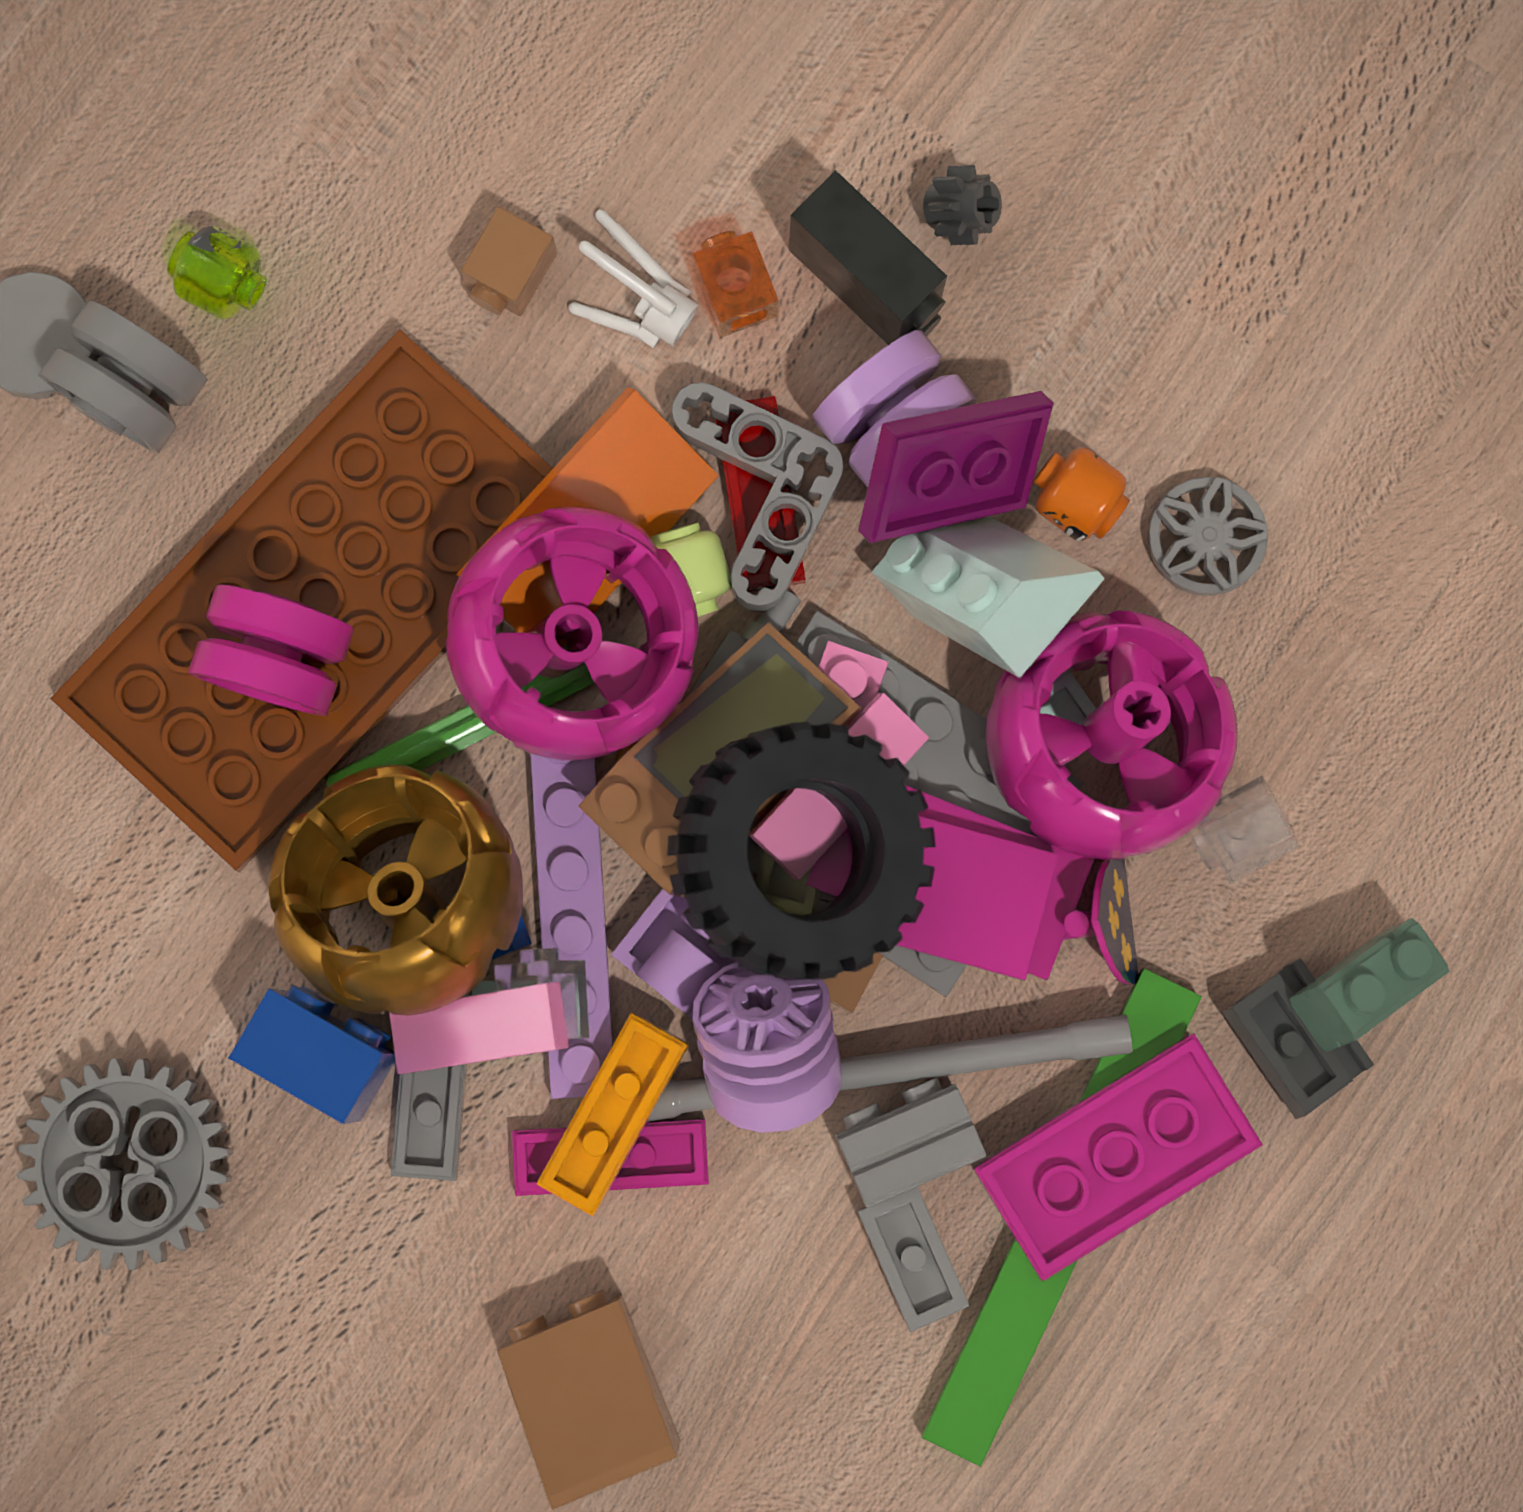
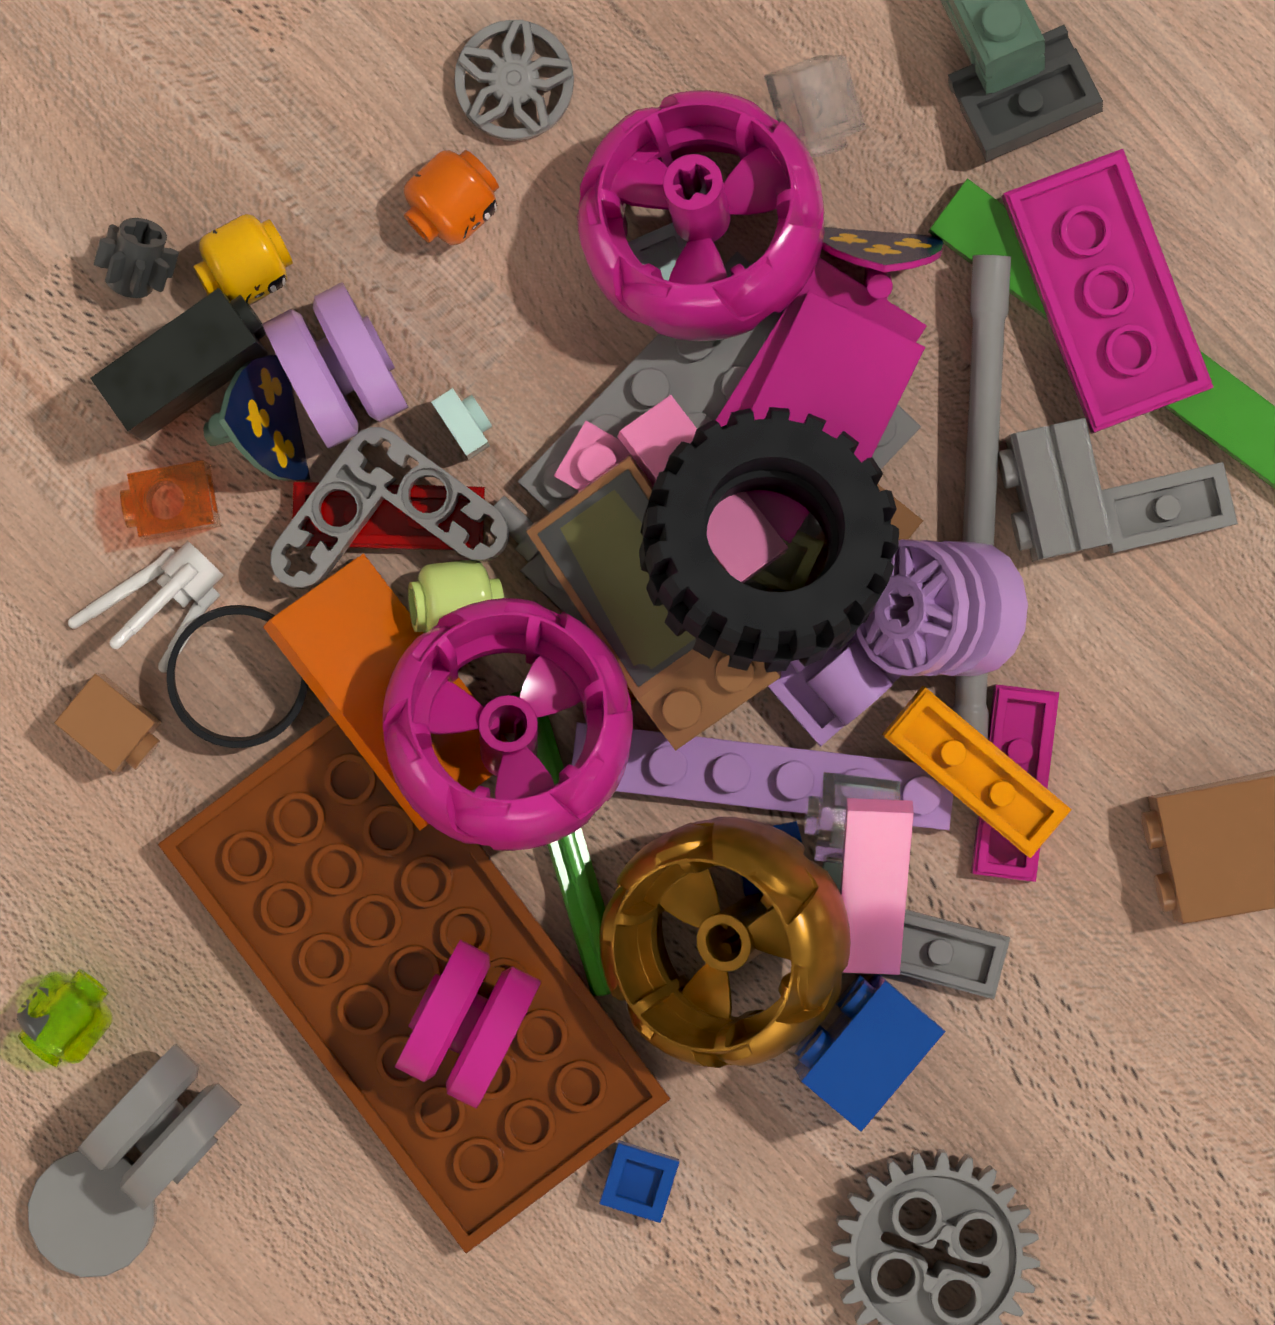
camera: 75 degrees left, 5 degrees up
(150, 856) = (639, 1181): none -> blue plate
(537, 325) = (195, 727): none -> black tyre
(824, 350) = (262, 420): none -> dark blue shield
(857, 554) = (464, 420): none -> light aqua plate
(954, 466) = (407, 317): magenta tile -> none
(981, 307) = (243, 259): none -> yellow head
(987, 588) = (531, 307): light aqua slope -> none

